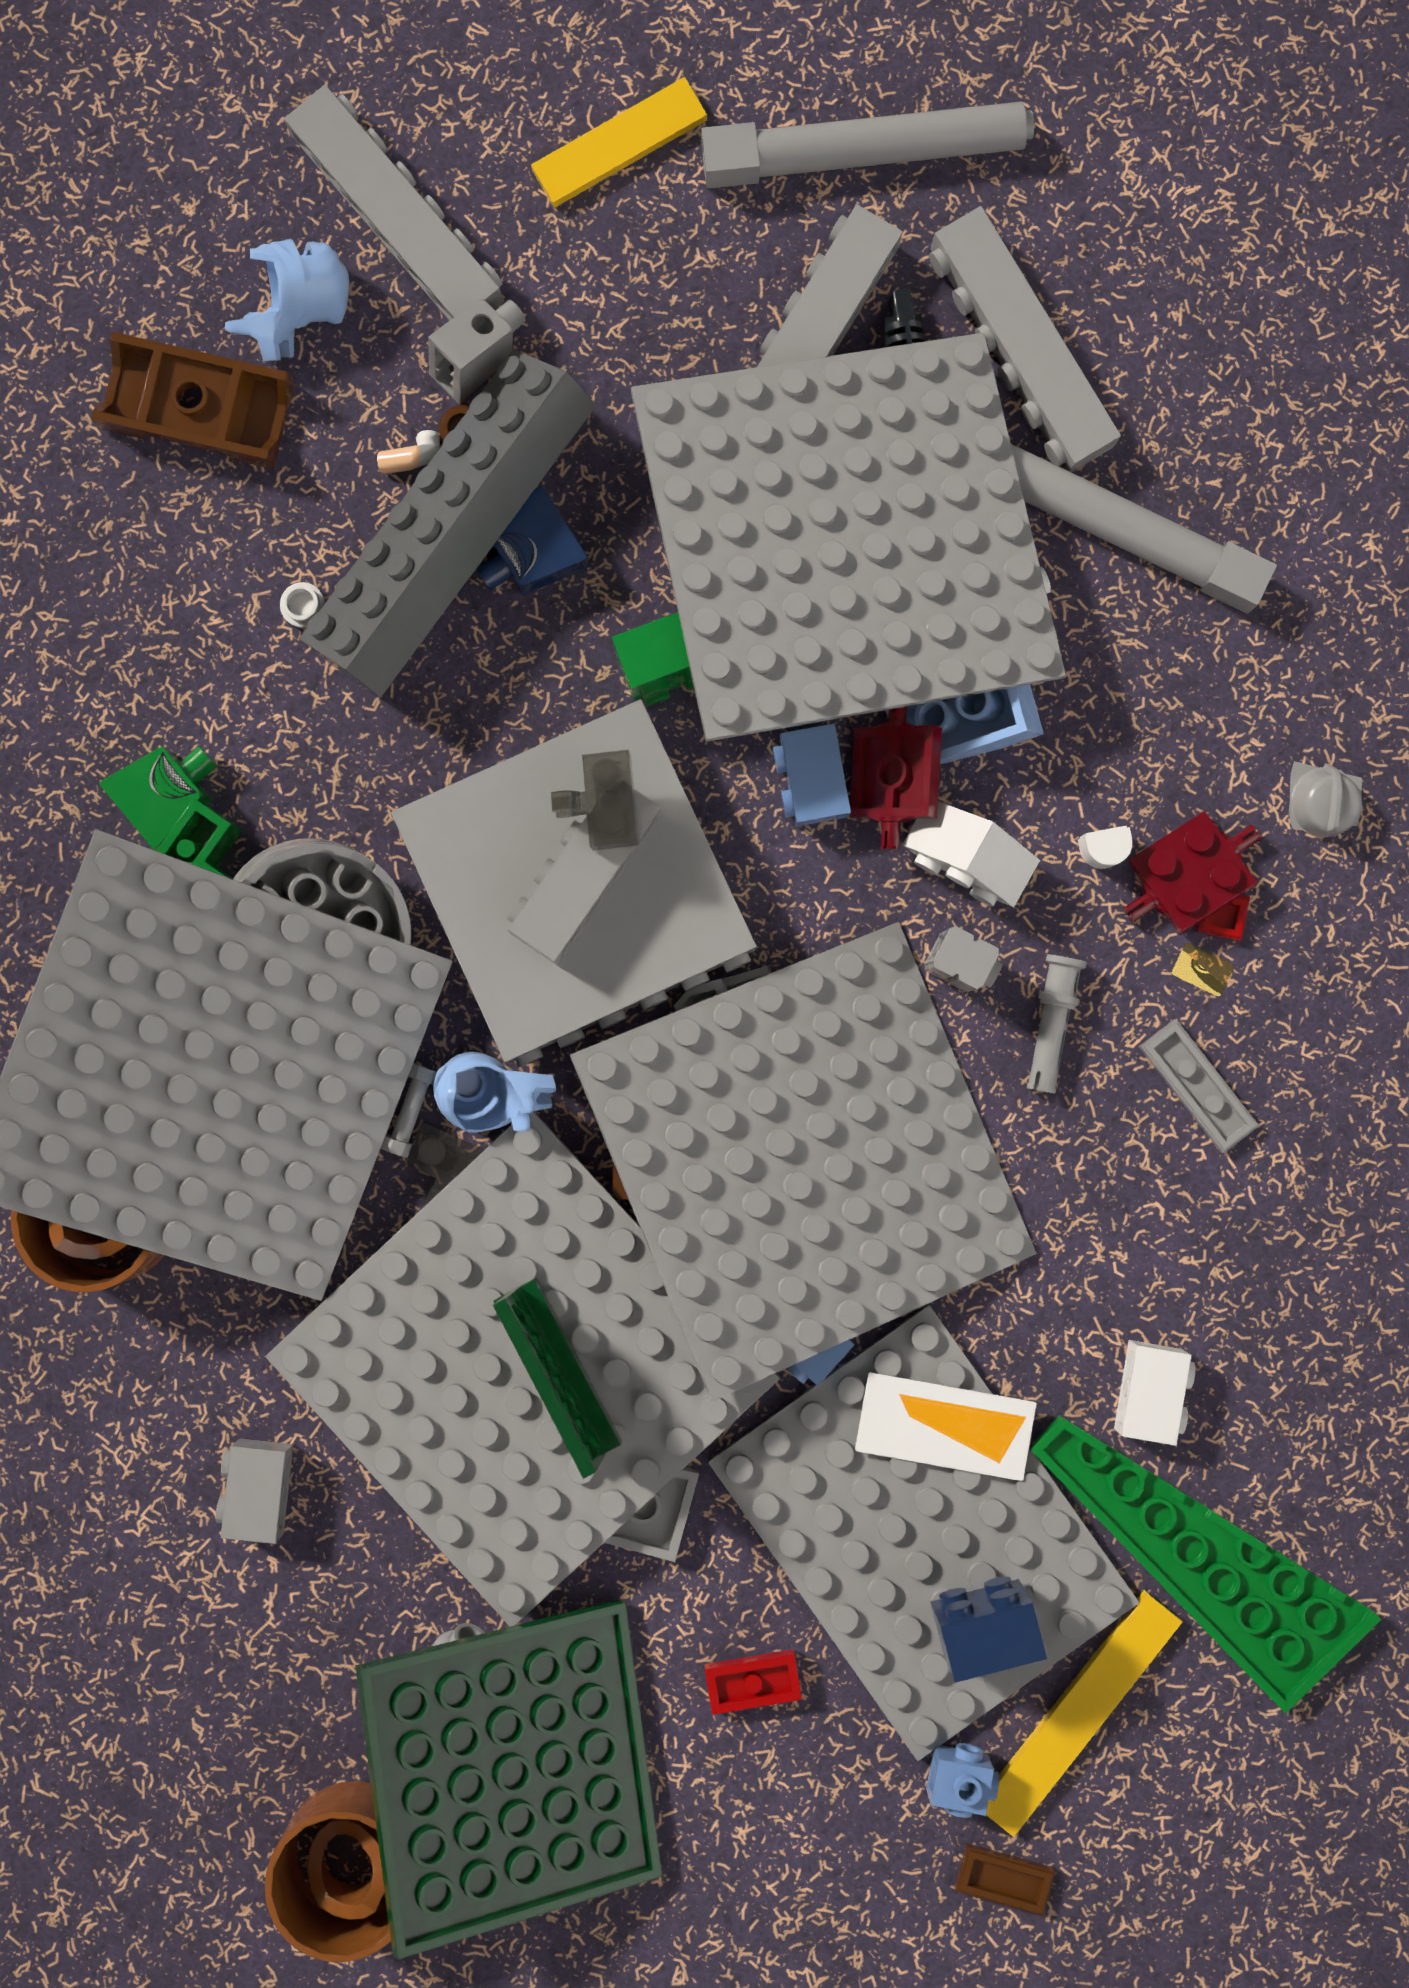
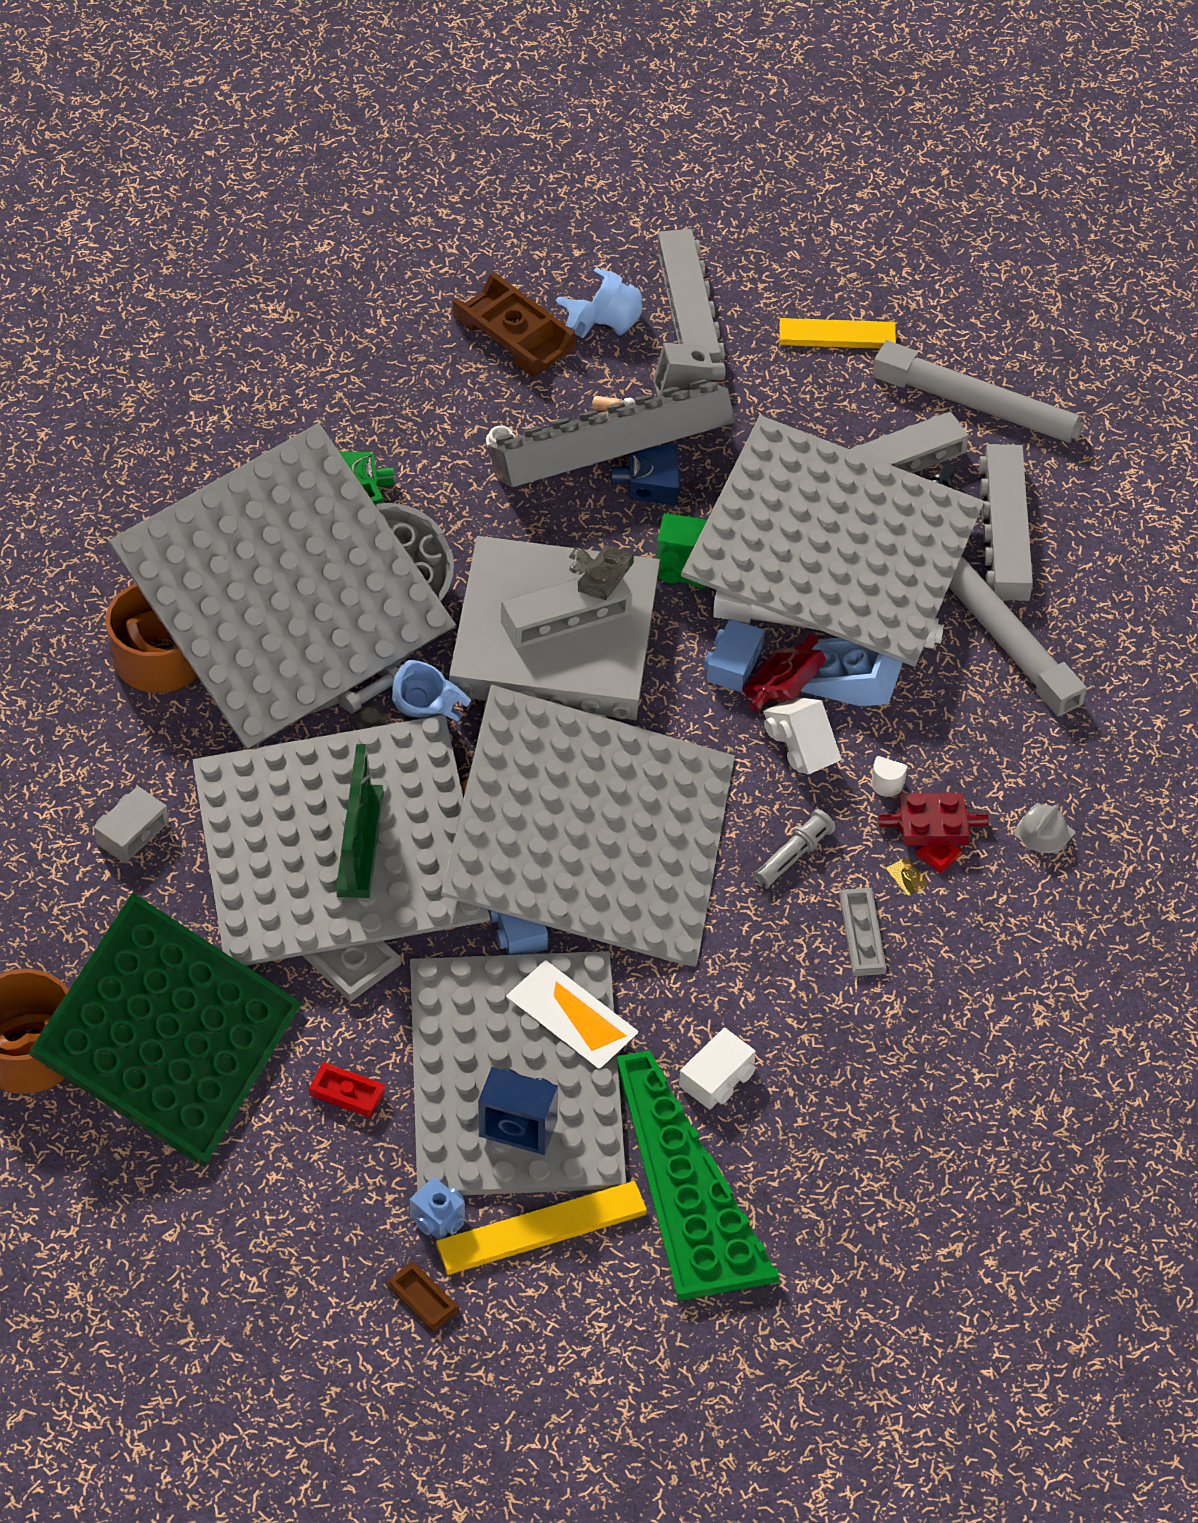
camera: 30 degrees right, 35 degrees down
(963, 960) = (757, 776): light grey brick -> none

